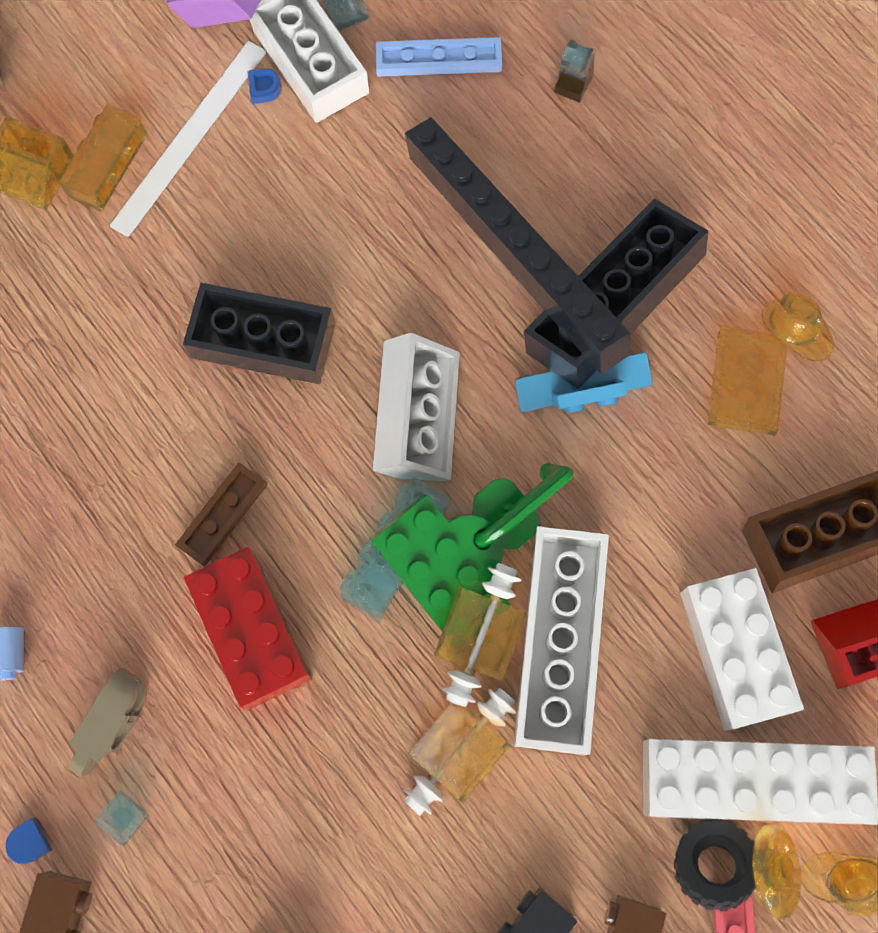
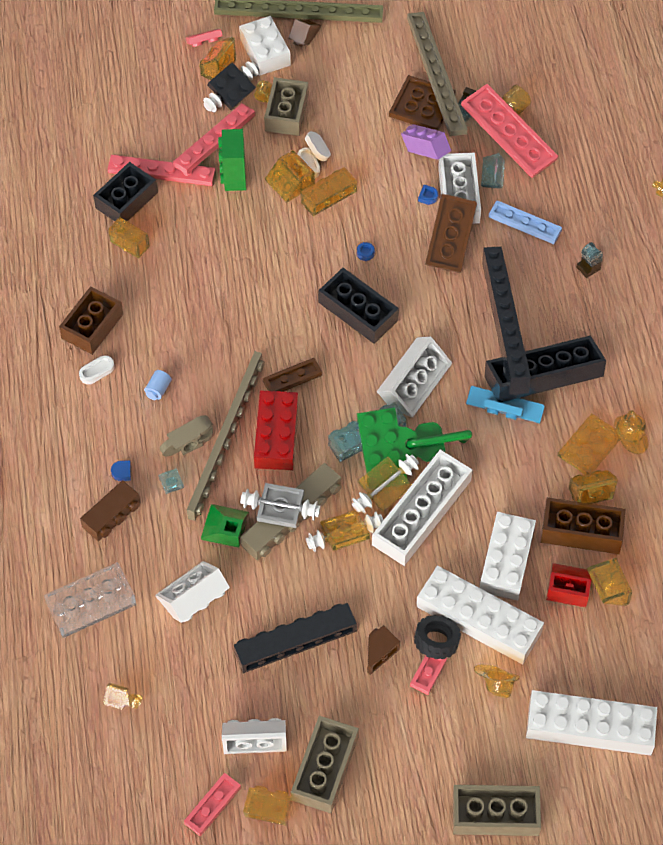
camera: 25 degrees right, 15 degrees down
(41, 115) = (307, 155): none -> white tile
(43, 88) = (317, 146): none -> white tile
(170, 695) = (223, 441): none -> dark tan plate
(187, 139) = (375, 202): white sticker -> none
(218, 230) = (365, 251): none -> blue tile
(256, 850) = (224, 525): none -> green slope
(333, 777) = (280, 505): none -> light grey plate
(339, 133) = (451, 233): none -> reddish brown plate
(351, 767) = (316, 487): none -> dark tan brick
(776, 870) = (464, 651): clear yellow plate -> none
(800, 453) = (593, 487): none -> clear yellow slope

